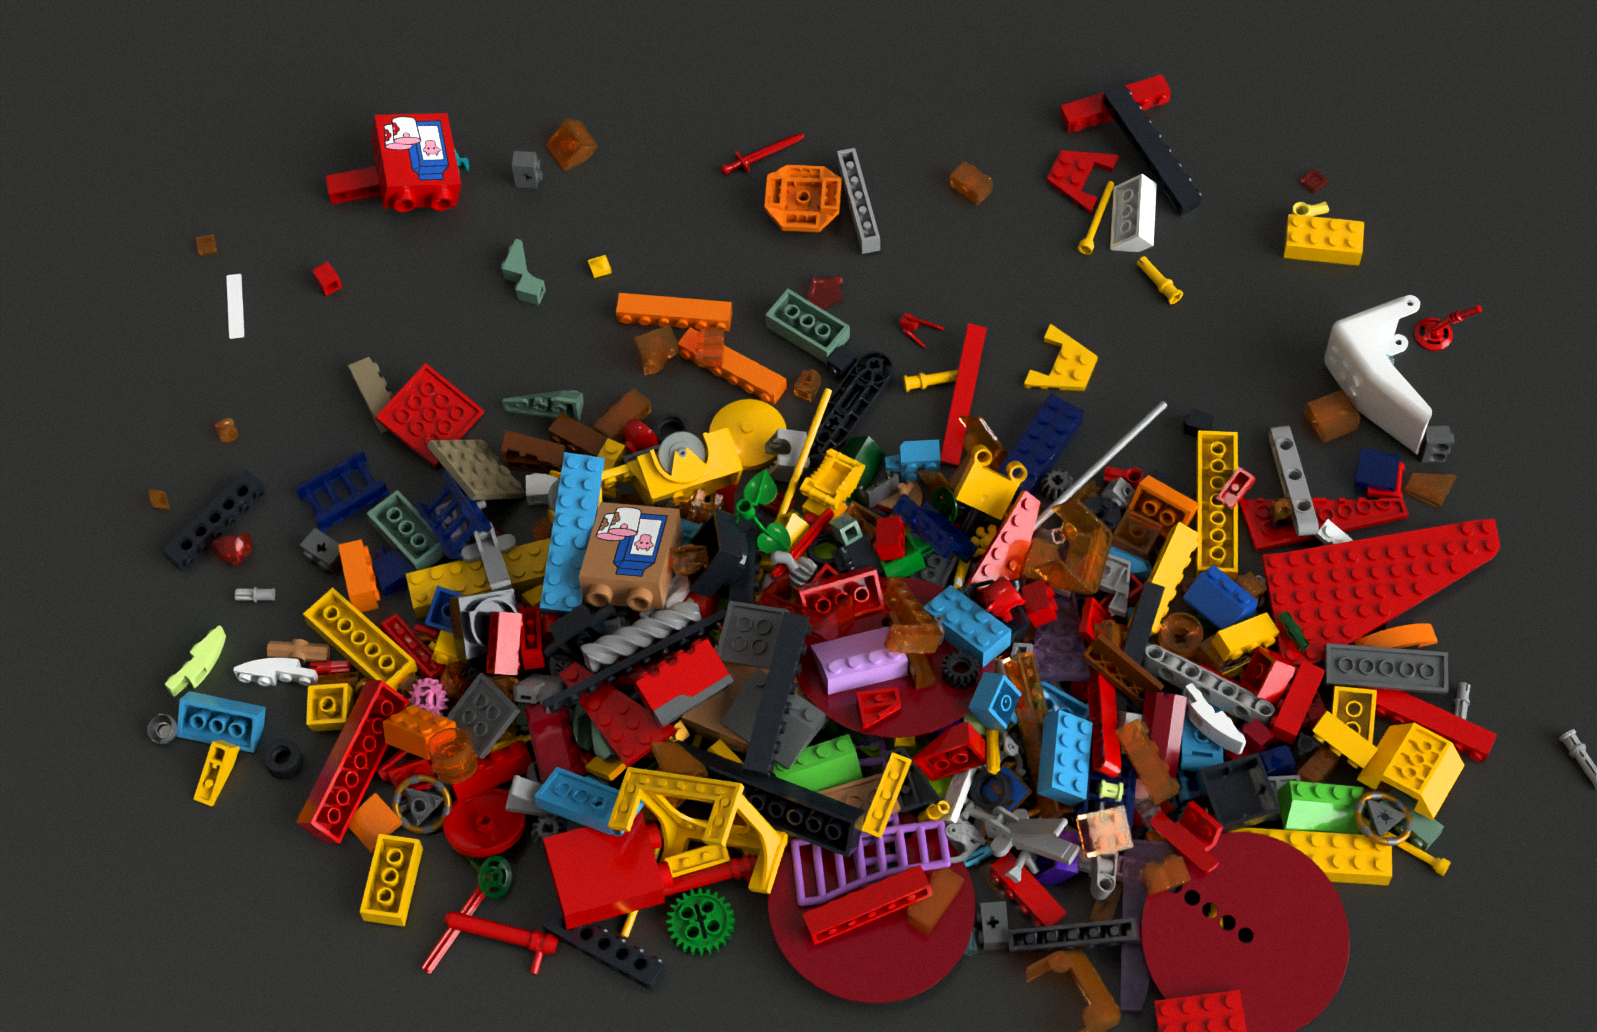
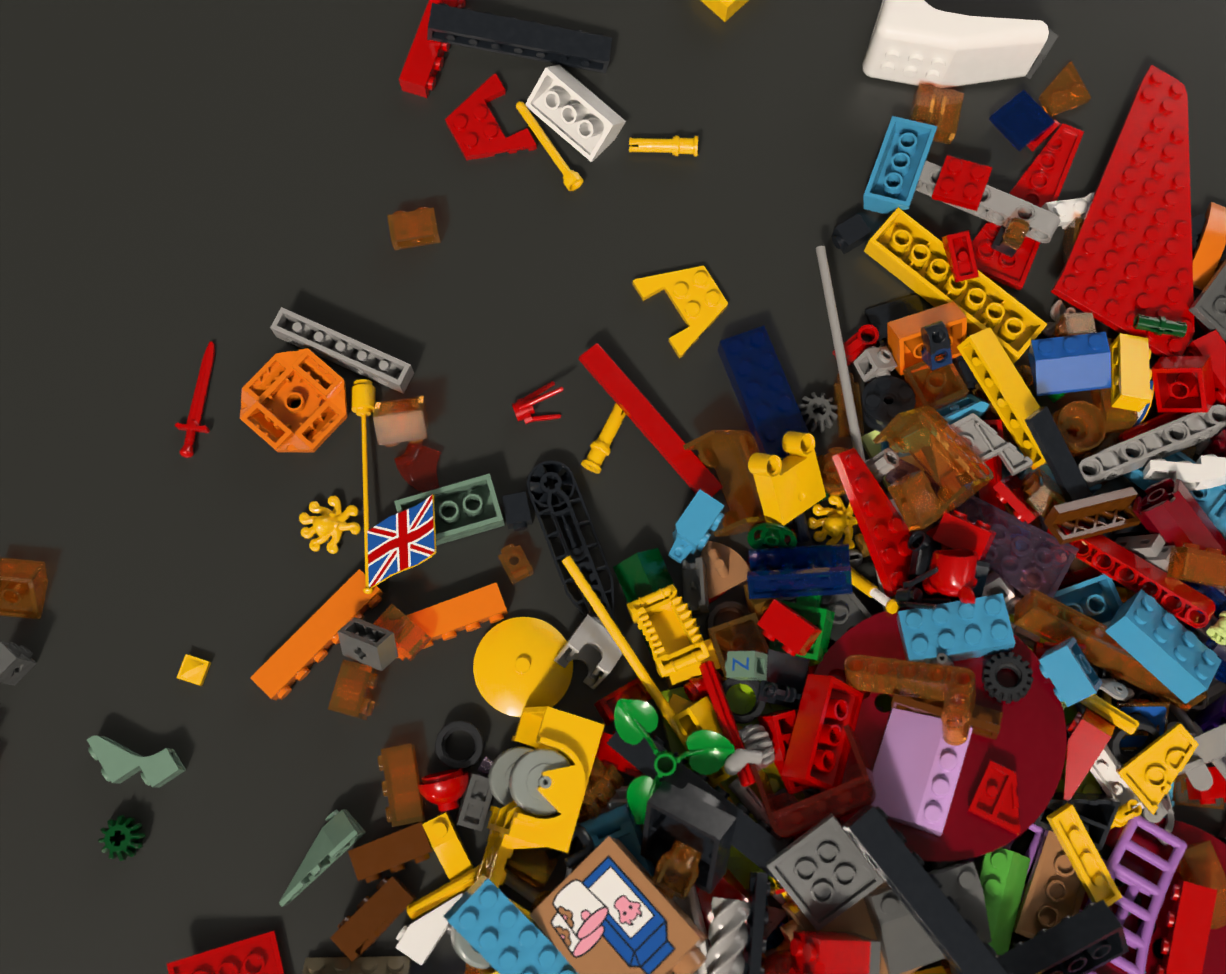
camera: 60 degrees left, 15 degrees up
(474, 298) = (121, 848): none -> dark green gear
(689, 330) = (368, 643): none -> dark grey brick
(745, 271) = (328, 524): none -> yellow animal
(771, 307) = (400, 539): none -> flag
(841, 259) = (401, 421): none -> clear orange brick
(982, 803) = (1157, 765): none -> yellow wing
(1155, 507) = (936, 343): none -> black leg
(1269, 413) = (898, 165): none -> dark azure slope
(1290, 457) = (962, 183): none -> red plate

